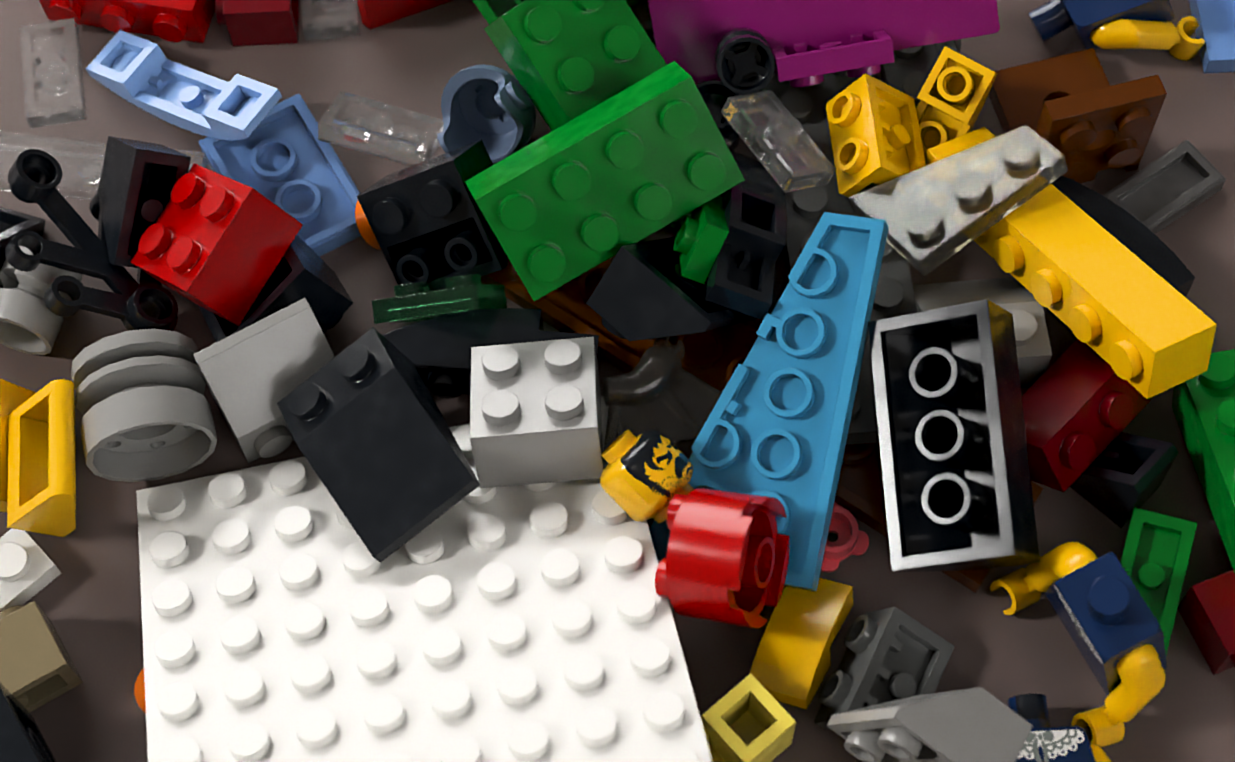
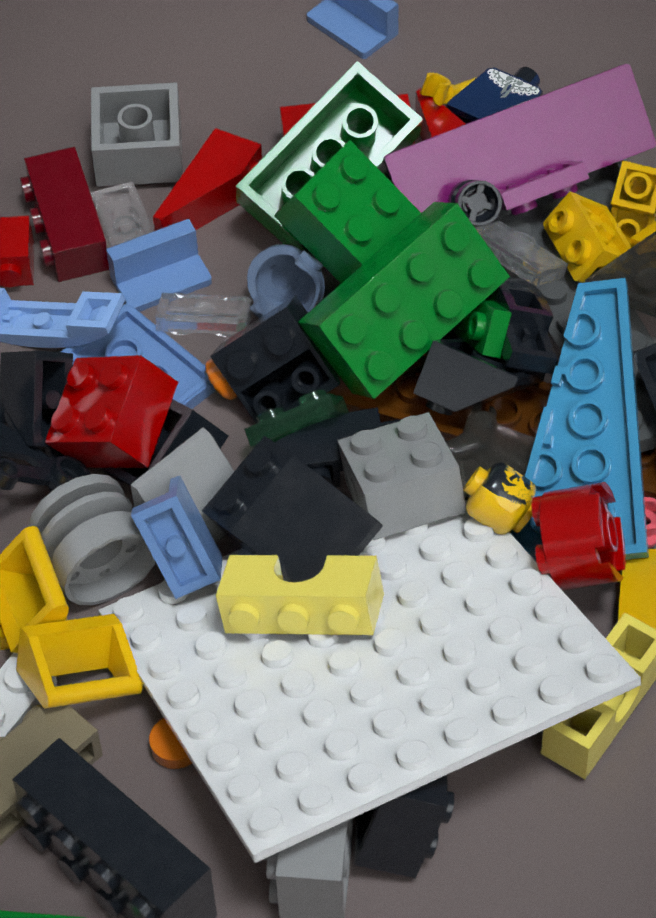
camera: 15 degrees left, 10 degrees down
(74, 543) = (75, 648): none -> yellow tile
(238, 435) = (179, 540): none -> medium blue panel
(350, 53) = (157, 265): none -> medium blue panel
(394, 575) = (335, 602): none -> light yellow arch

